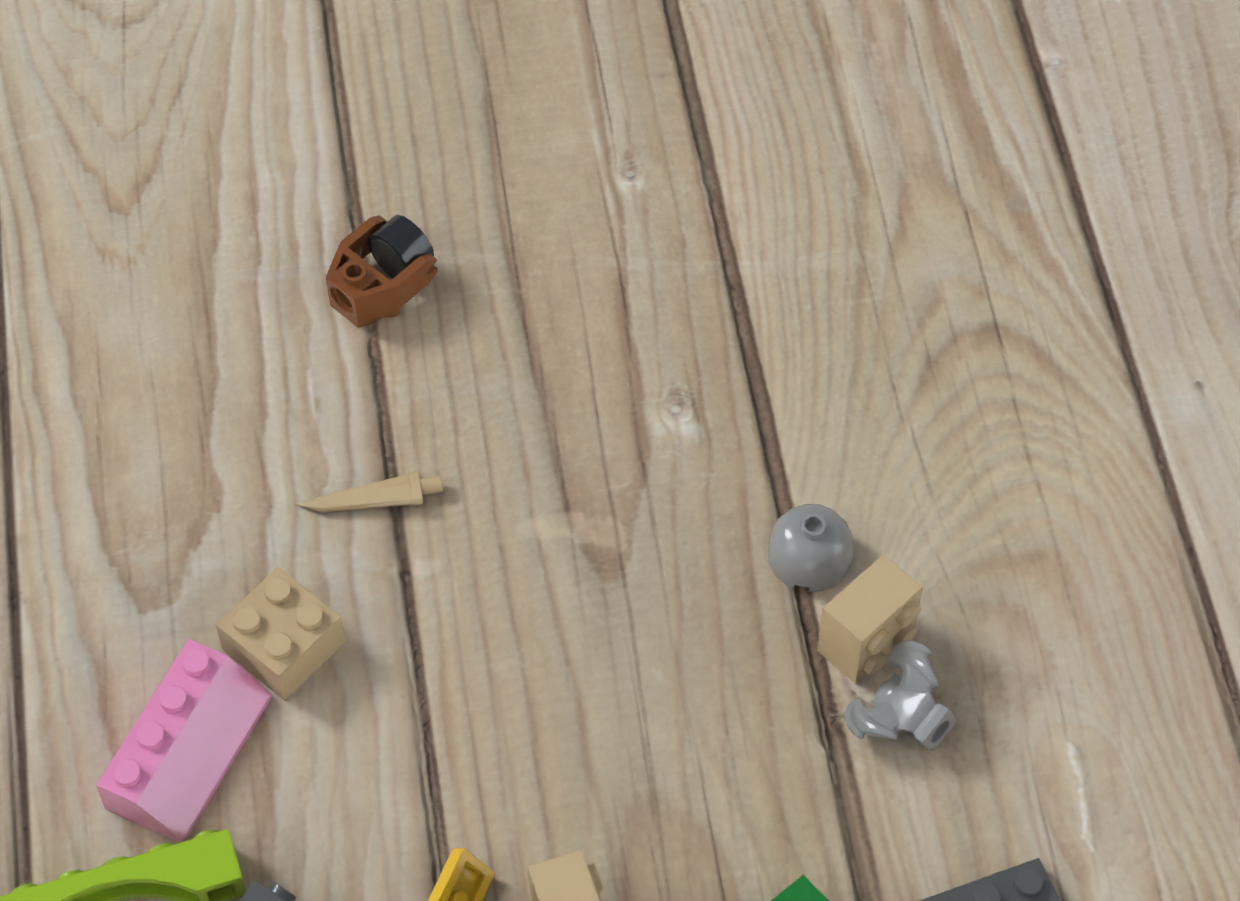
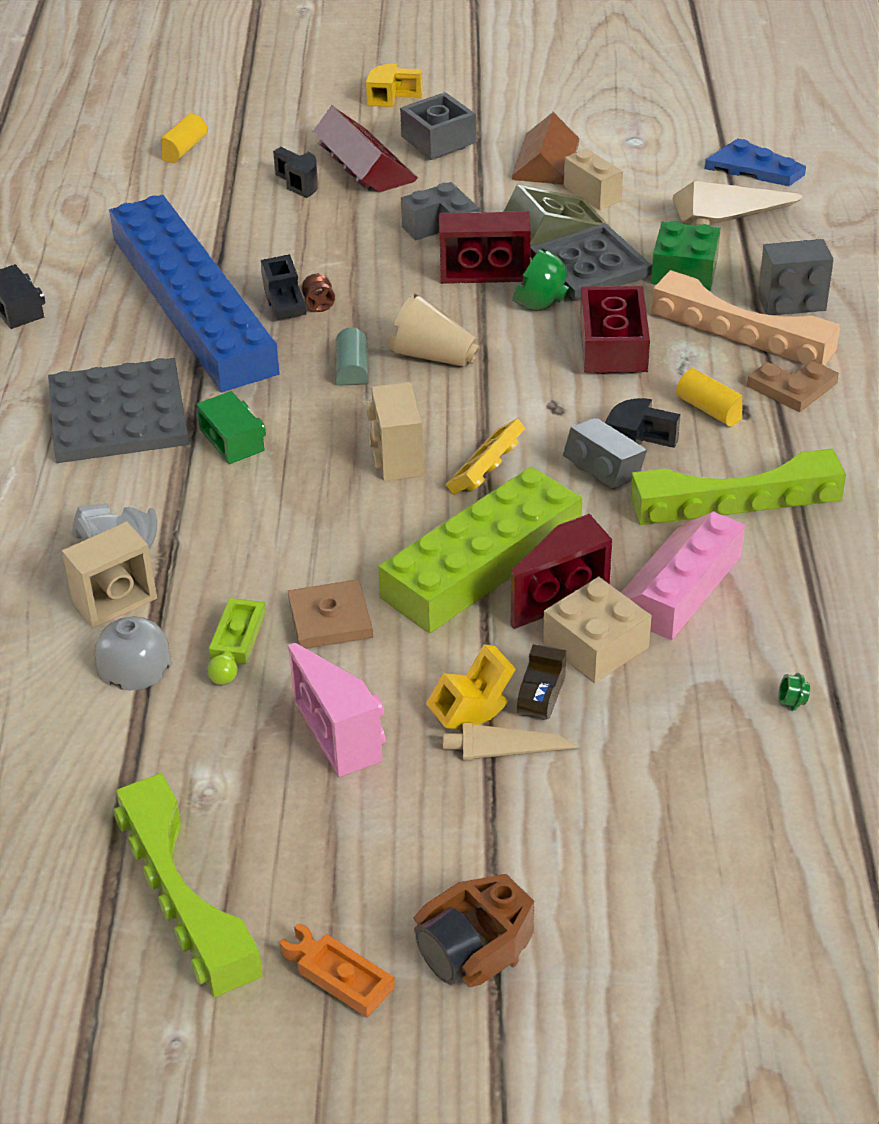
camera: 170 degrees left, 15 degrees down
(59, 587) = (793, 691): none -> green plate
(322, 693) = (558, 567): none -> dark red slope
(341, 558) = (542, 681): none -> dark brown leg
(417, 525) = (472, 696): none -> yellow brick
(428, 746) = (475, 549): none -> lime brick
(501, 233) = (339, 970): none -> orange plate
(556, 465) = (337, 711): none -> bright pink slope
(601, 640) = (330, 614): none -> medium nougat plate
(616, 239) = (217, 940): none -> lime arch
(700, 581) = (234, 638): none -> lime plate

